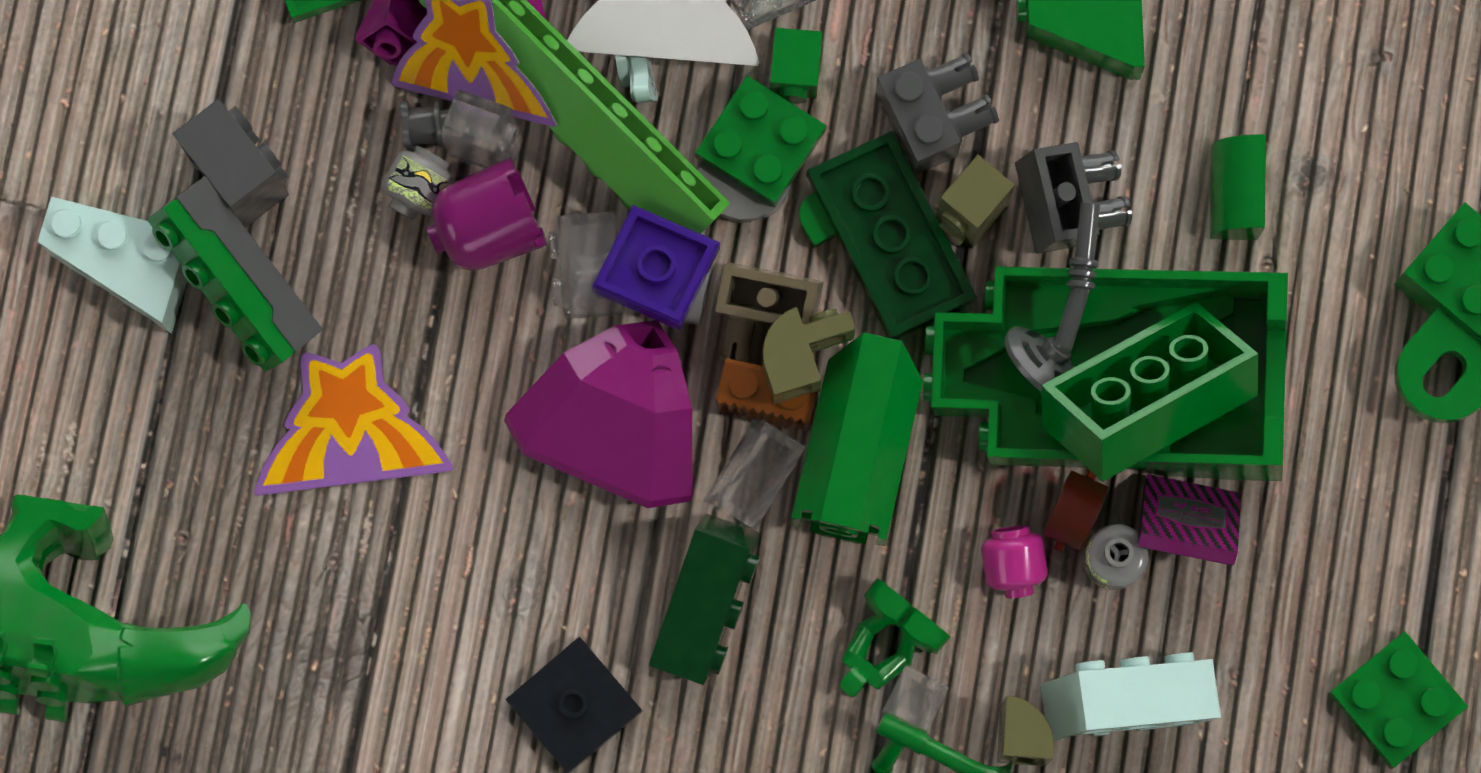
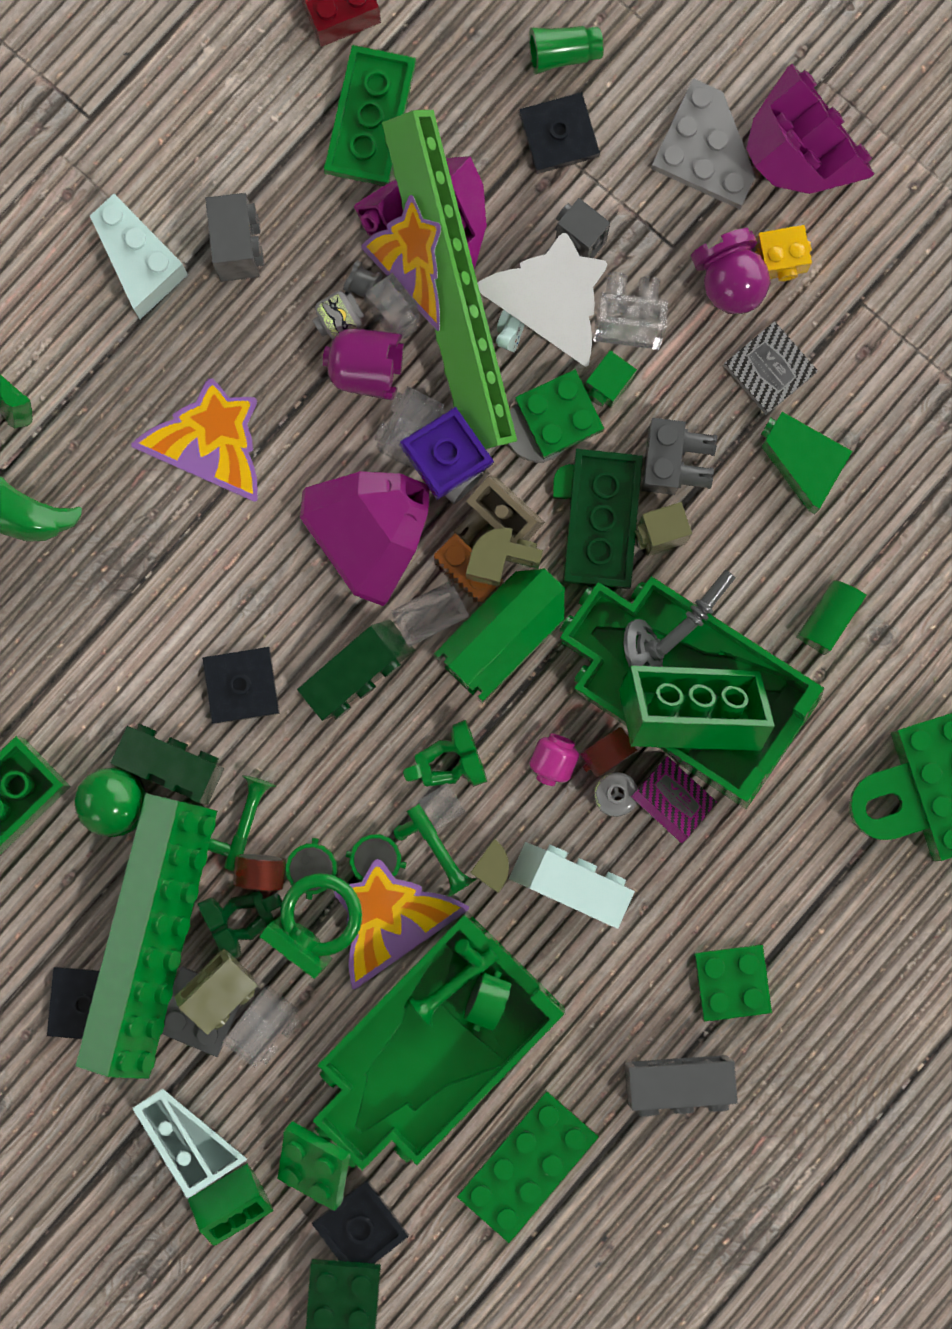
camera: 30 degrees right, 5 degrees up
(234, 275) = (192, 306): piece -> none
(1056, 184) = (720, 549): dark grey brick -> none

